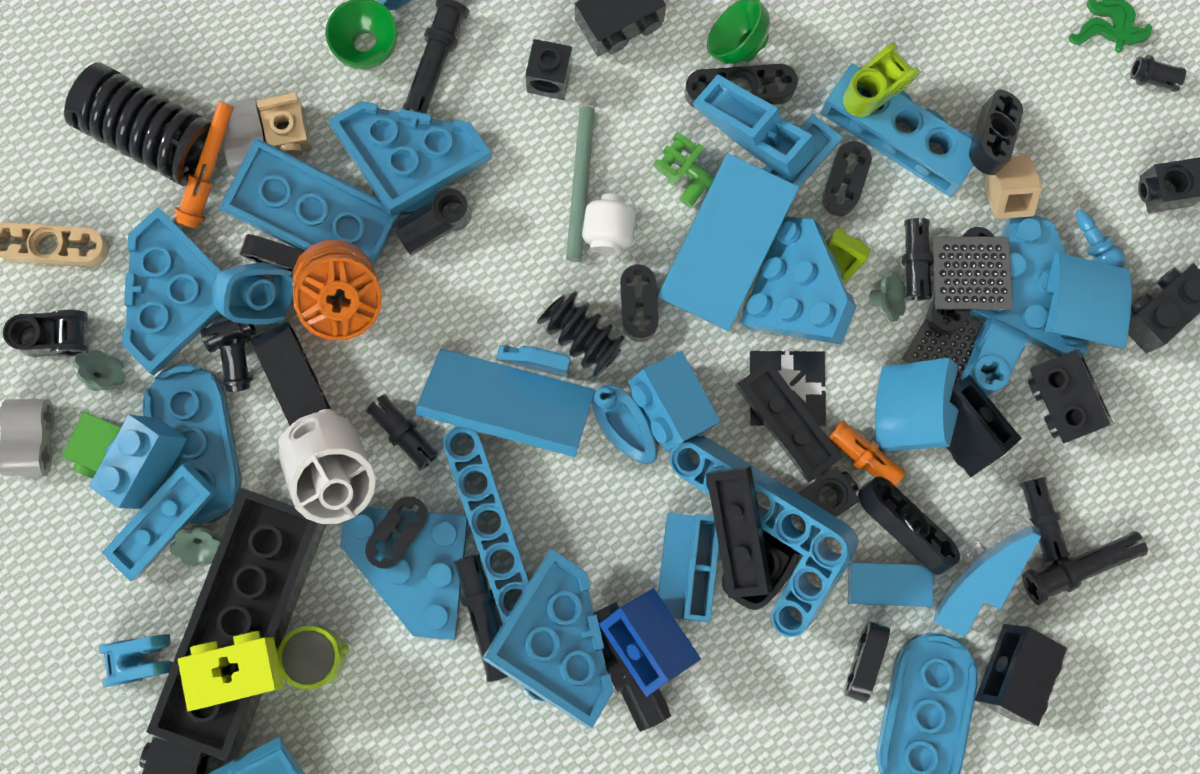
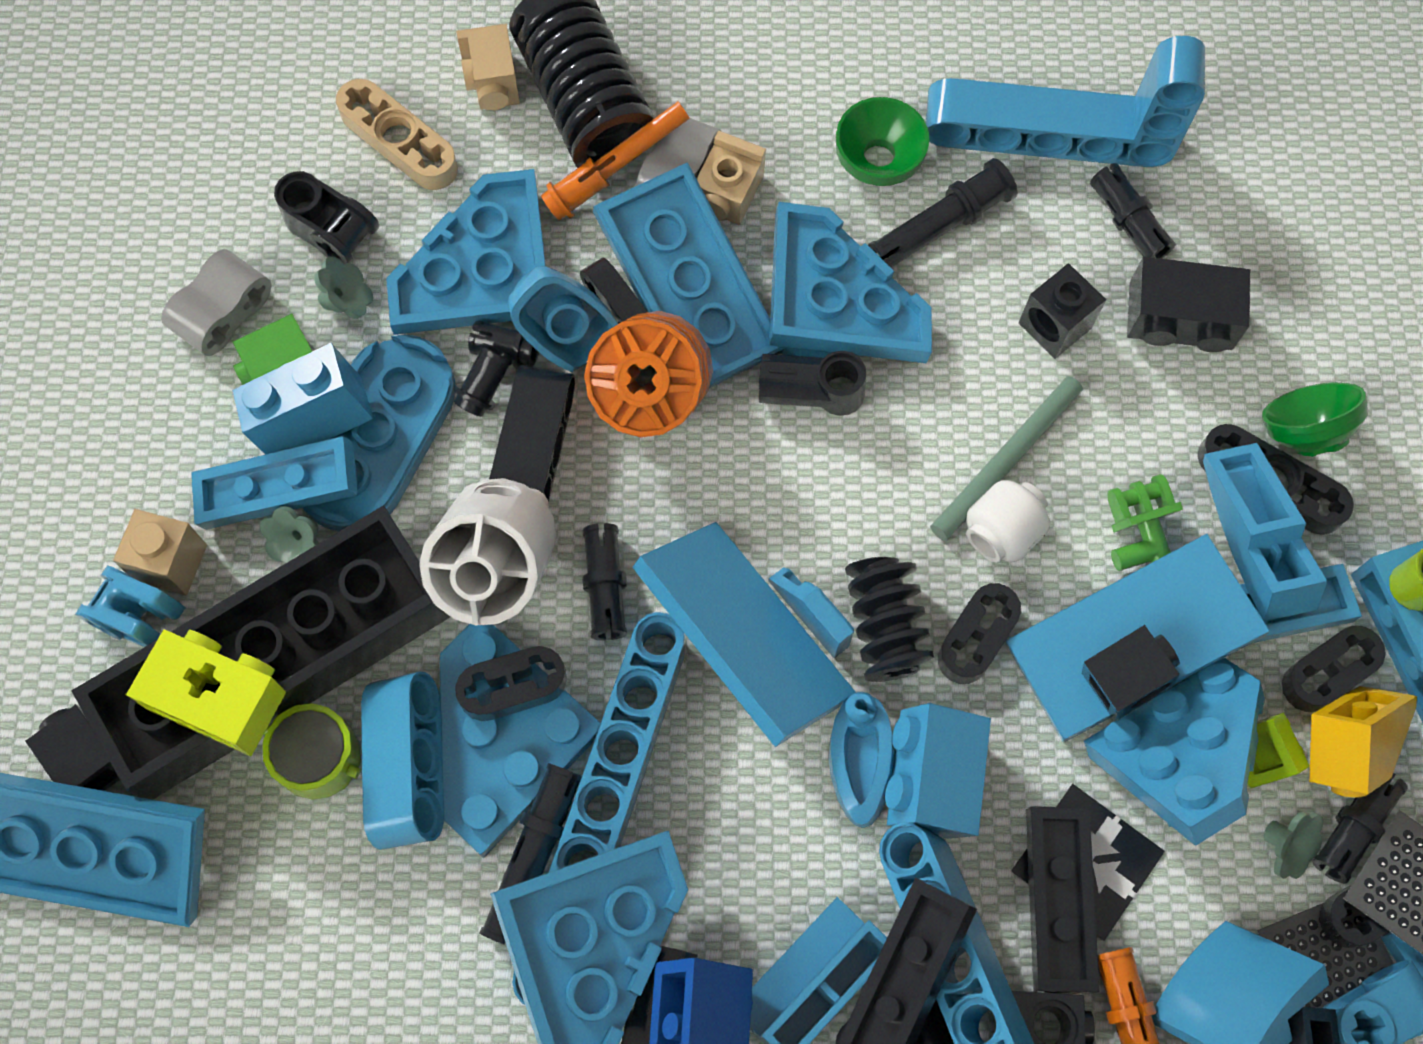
camera: 40 degrees right, 10 degrees down
(72, 157) = (489, 66): none -> tan brick
(124, 613) = (160, 551): none -> tan brick
(368, 622) = (402, 761): none -> dark azure beam
(740, 266) = (1132, 671): none -> black brick
(887, 212) = (1359, 740): none -> yellow slope

